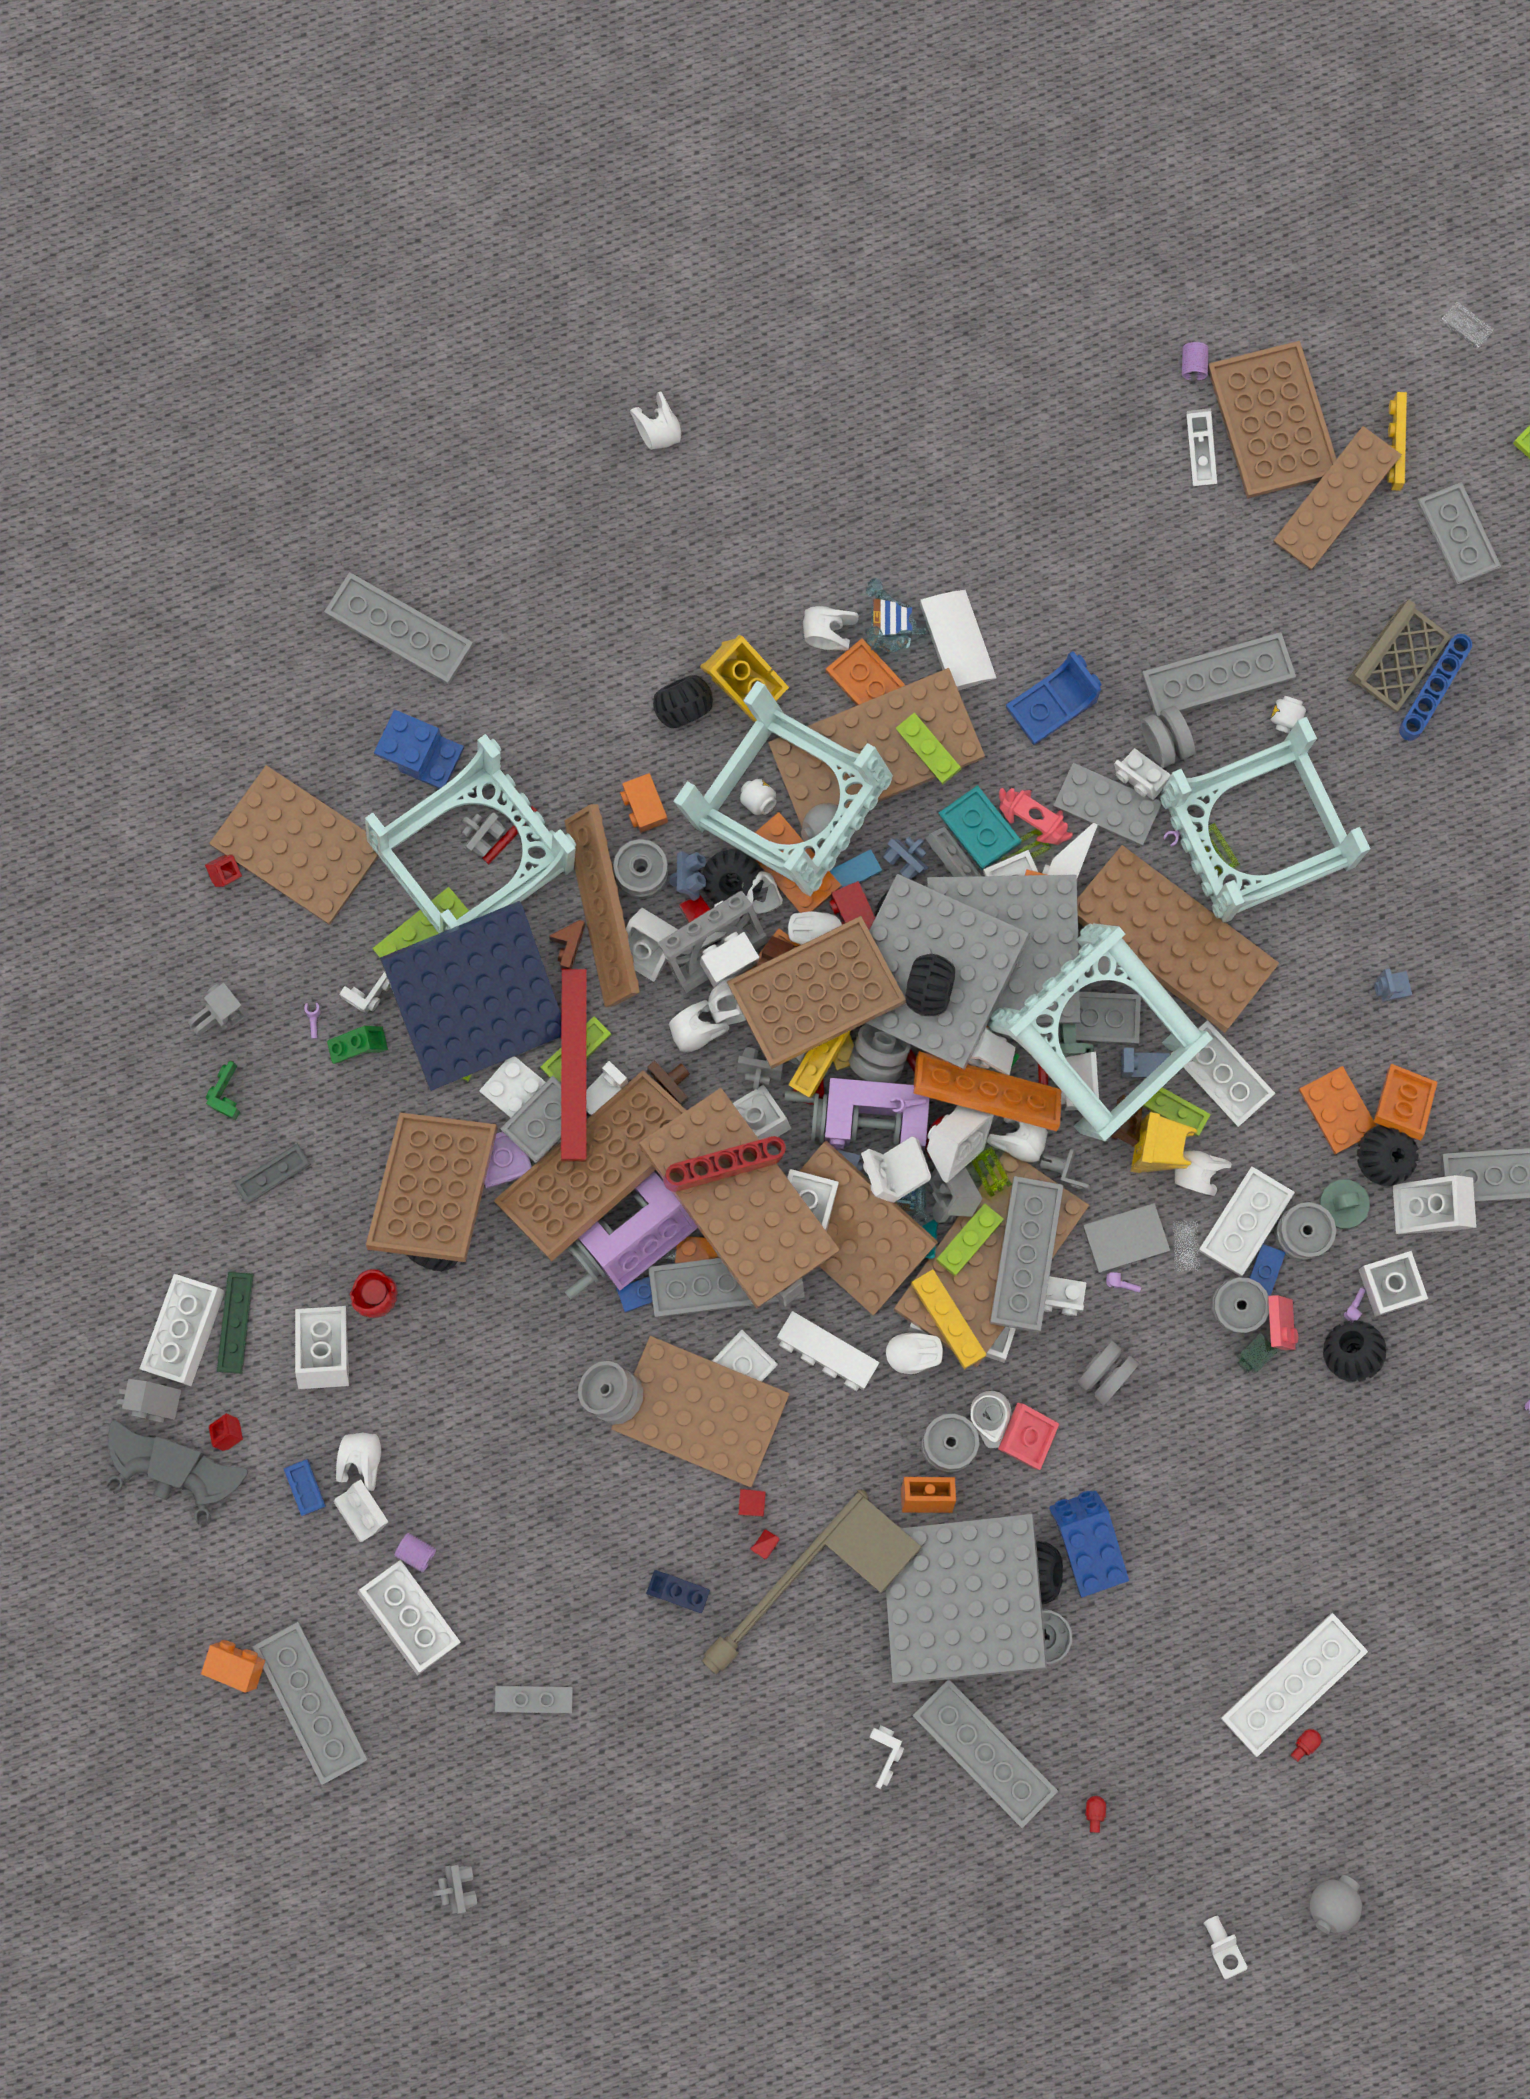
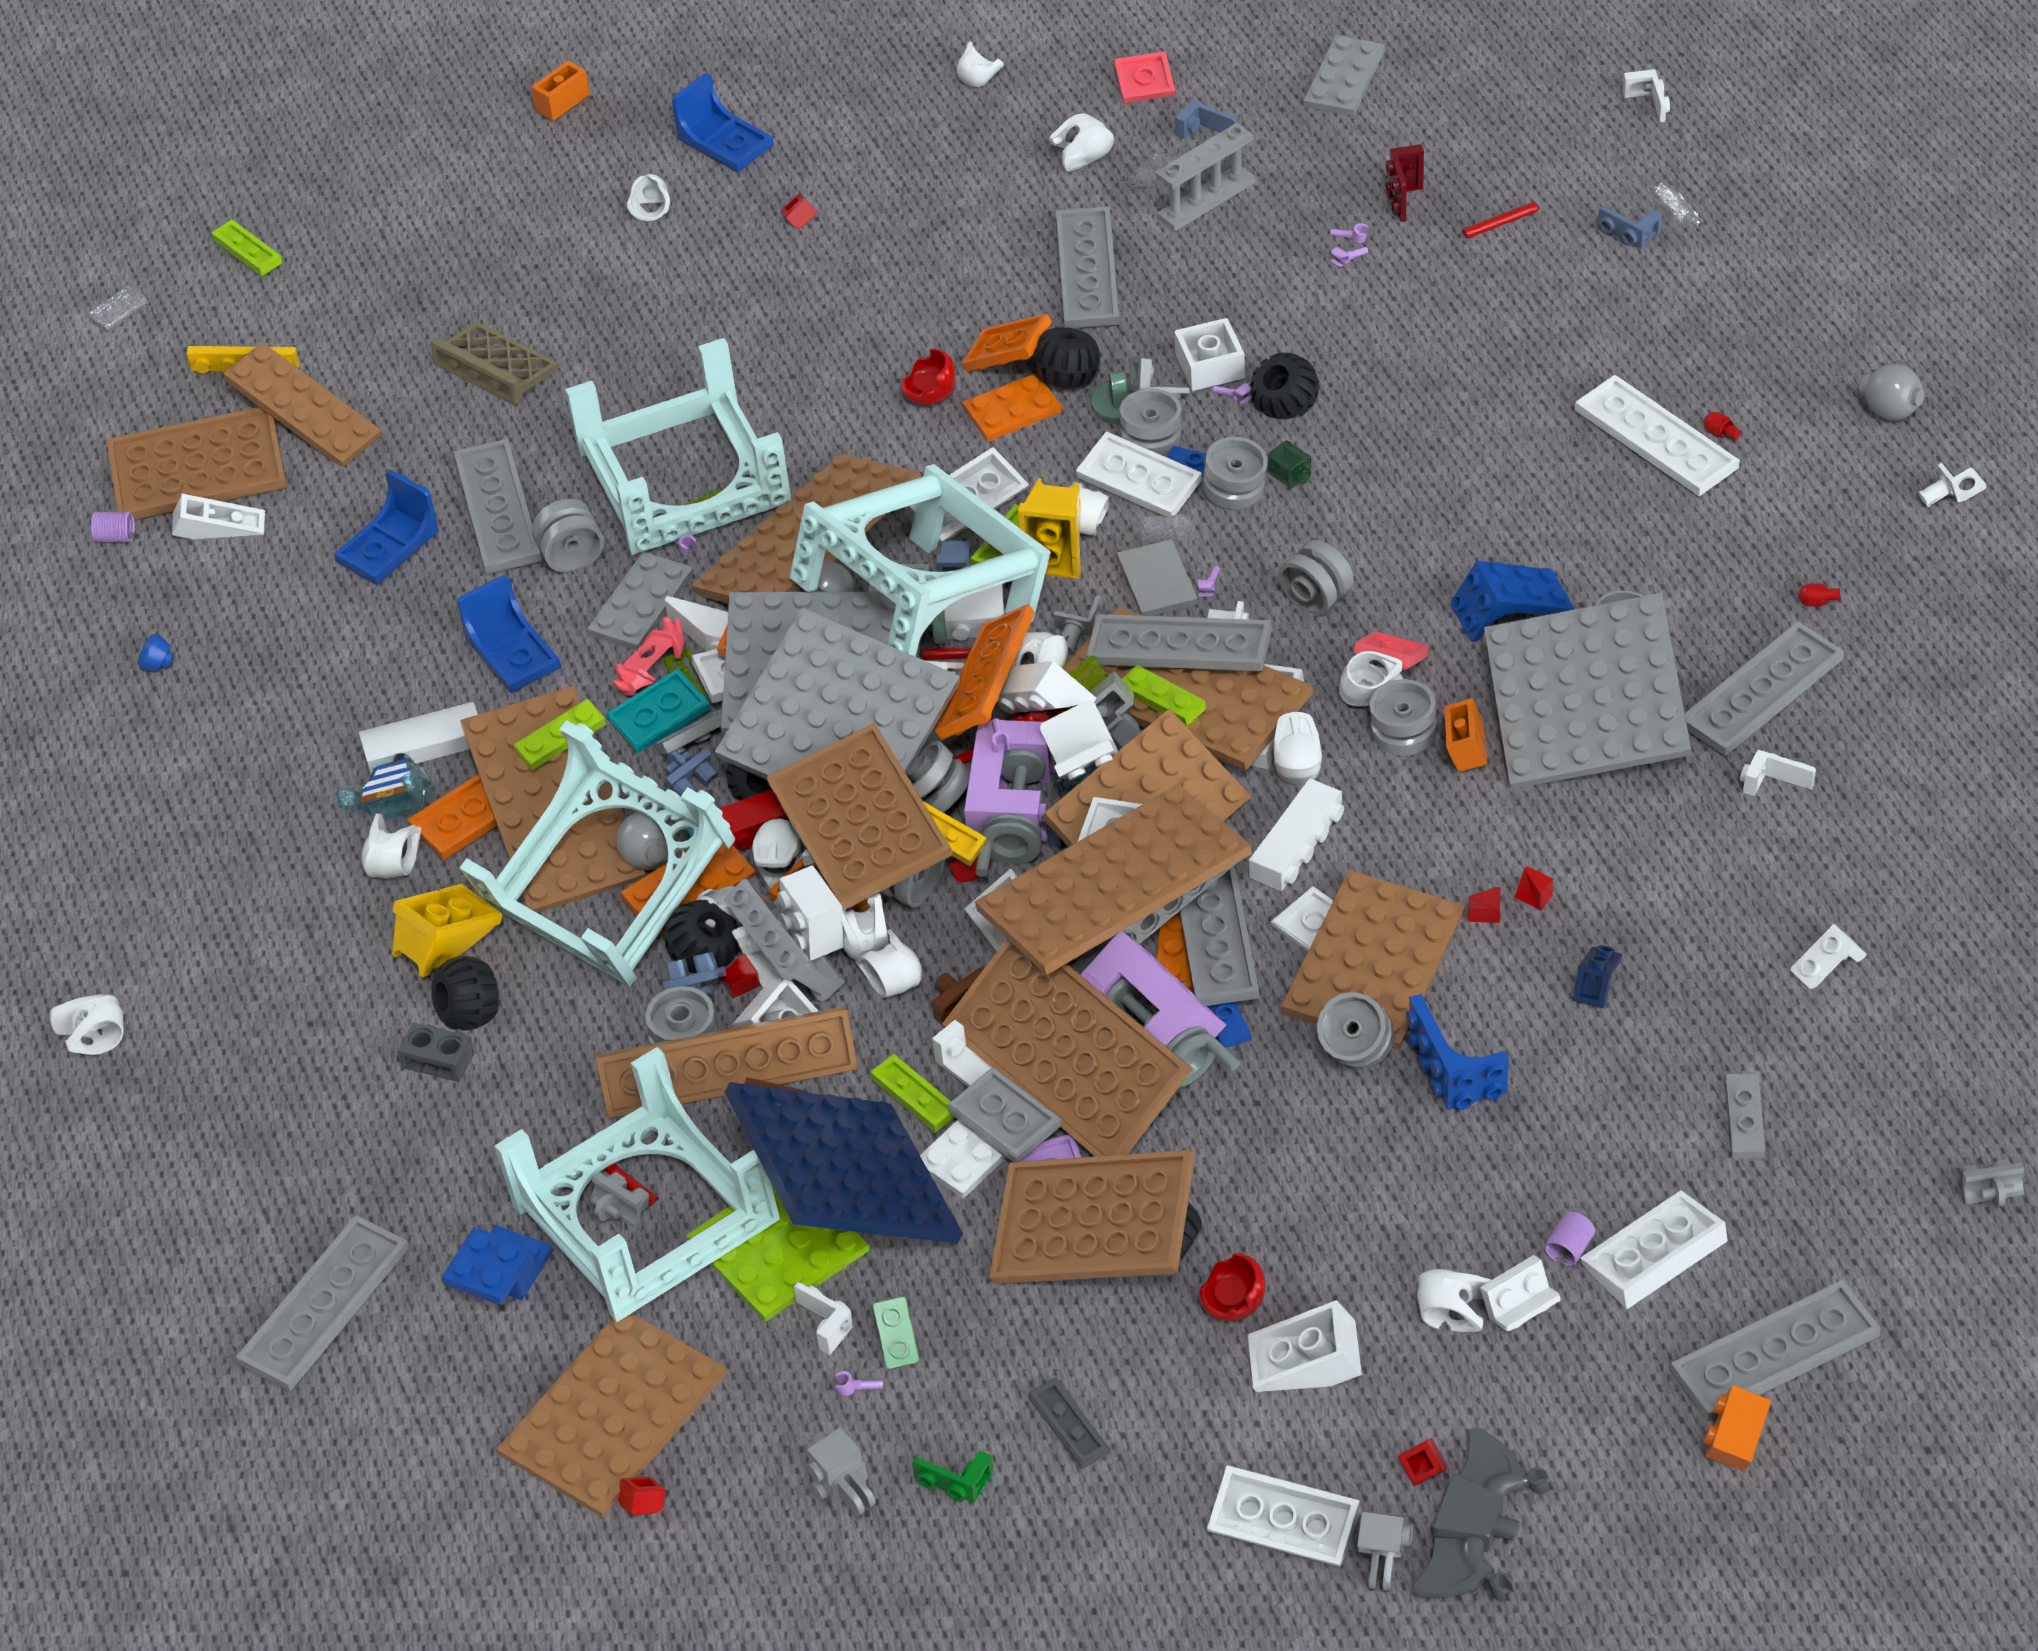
camera: 85 degrees left, 30 degrees down
(235, 1322) = (1274, 1458): dark green tile -> none
(304, 1487) = (1492, 1367): blue plate -> none
(567, 1461) = (1453, 1076): none -> blue bracket
(573, 1065) = (943, 1078): red tile -> none
(620, 684) = (436, 1051): none -> dark grey brick
(644, 803) = (594, 1028): orange brick -> none
(687, 1781) = (1825, 956): none -> white bracket
(735, 1158) = (1074, 875): red beam -> none
(756, 1069) = (947, 907): light grey hips -> none
(758, 797) = (598, 914): white head -> none
(860, 1538) = (1521, 798): dark tan flag -> none
(930, 985) = (858, 697): black wheel -> none
(948, 1319) = (1257, 706): yellow plate -> none
(1047, 417) = (155, 654): none -> blue cone
(1142, 774) = (608, 565): white bracket -> none
(1179, 588) = (394, 533): none -> blue bracket
(1282, 1328) = (1266, 433): coral plate -> none
(1286, 713) = (551, 445): white head -> none
(1350, 1230) = (1141, 373): none -> light grey bracket
(1362, 1035) = (930, 379): none -> red piece
(1392, 986) = (873, 358): sand blue bracket -> none
(1434, 1205) = (1122, 321): white slope -> none
(1442, 679) = (535, 329): blue beam -> none
(1459, 533) = (358, 317): light grey tile -> none

